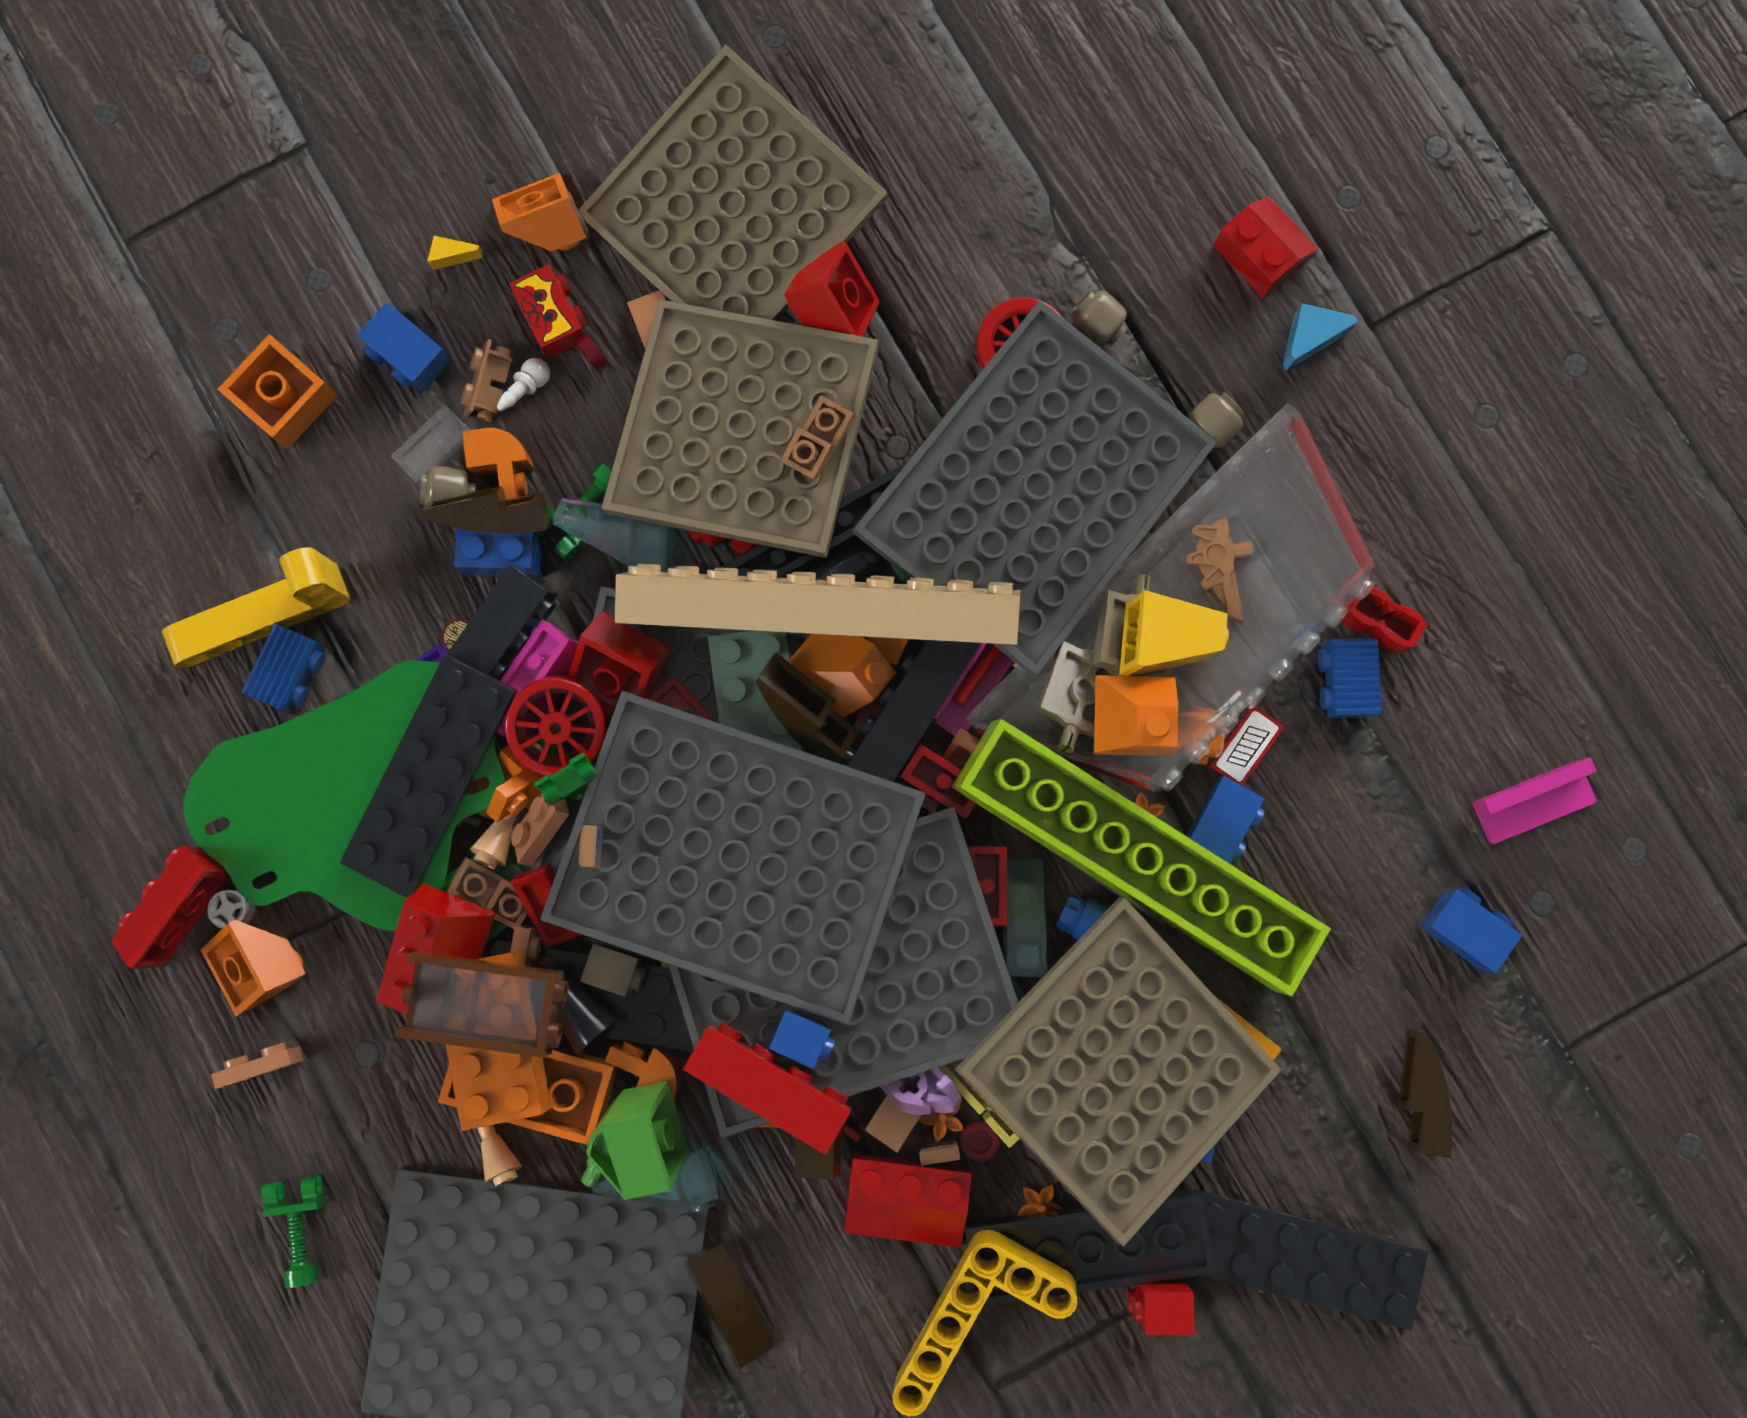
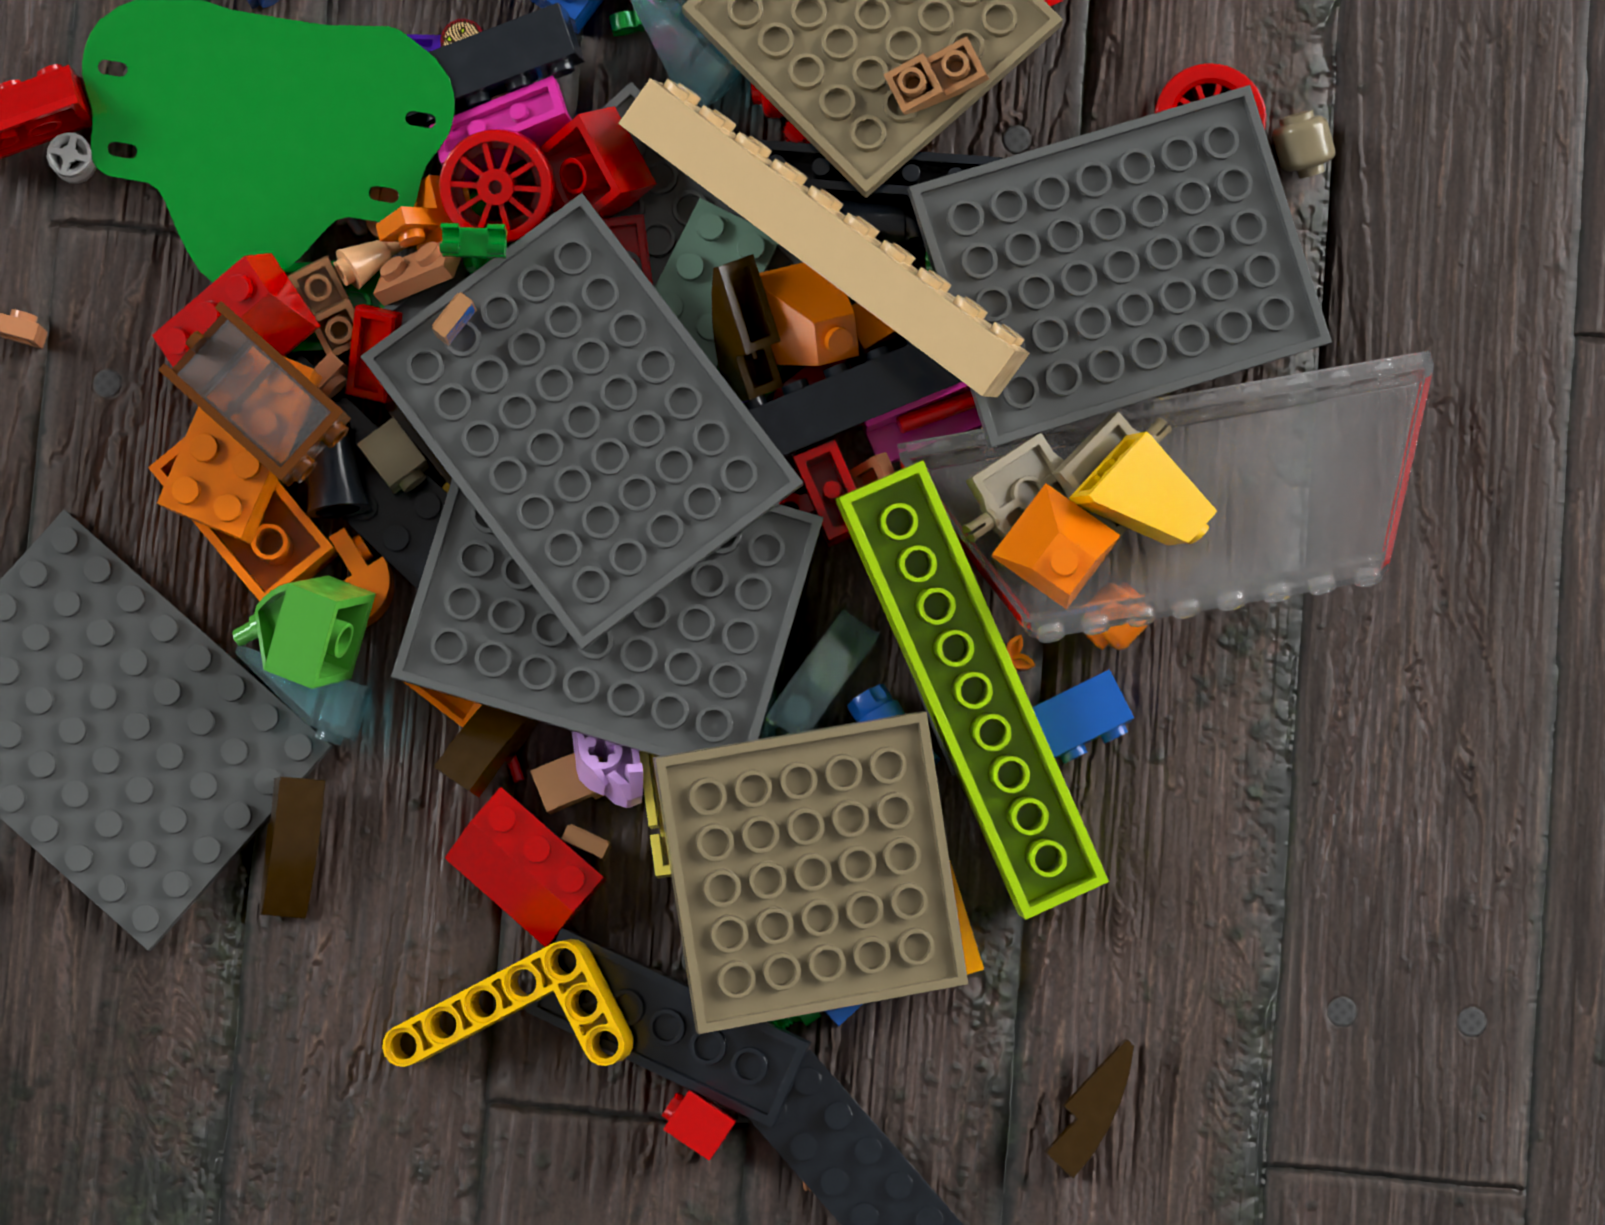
camera: 35 degrees right, 0 degrees up
(251, 965) = (55, 223): orange slope -> none
(428, 776) = (345, 153): black plate -> none
(498, 1160) = (164, 566): light nougat cone -> none
(768, 1088) = (466, 654): red brick -> none
(802, 1039) = (529, 633): blue brick -> none
(941, 1122) = (613, 816): orange plant -> none
(979, 1141) = (632, 860): dark red tile -> none
(991, 871) = (816, 611): red brick -> none
(1038, 1202) = (650, 956): orange plant -> none
(1217, 561) = (1249, 460): medium nougat piece -> none
(1218, 417) = (1351, 320): dark tan head -> none
(1246, 745) = (1156, 660): tile -> none
(1264, 245) = (1524, 180): red slope -> none
(1314, 330) = (1510, 300): dark azure slope -> none
(1350, 678) = (1305, 662): blue brick -> none
(1392, 624) = (1378, 634): red brick -> none
(1471, 930) = (1251, 983): blue brick -> none
(1536, 801) = (1406, 906): dark pink panel -> none

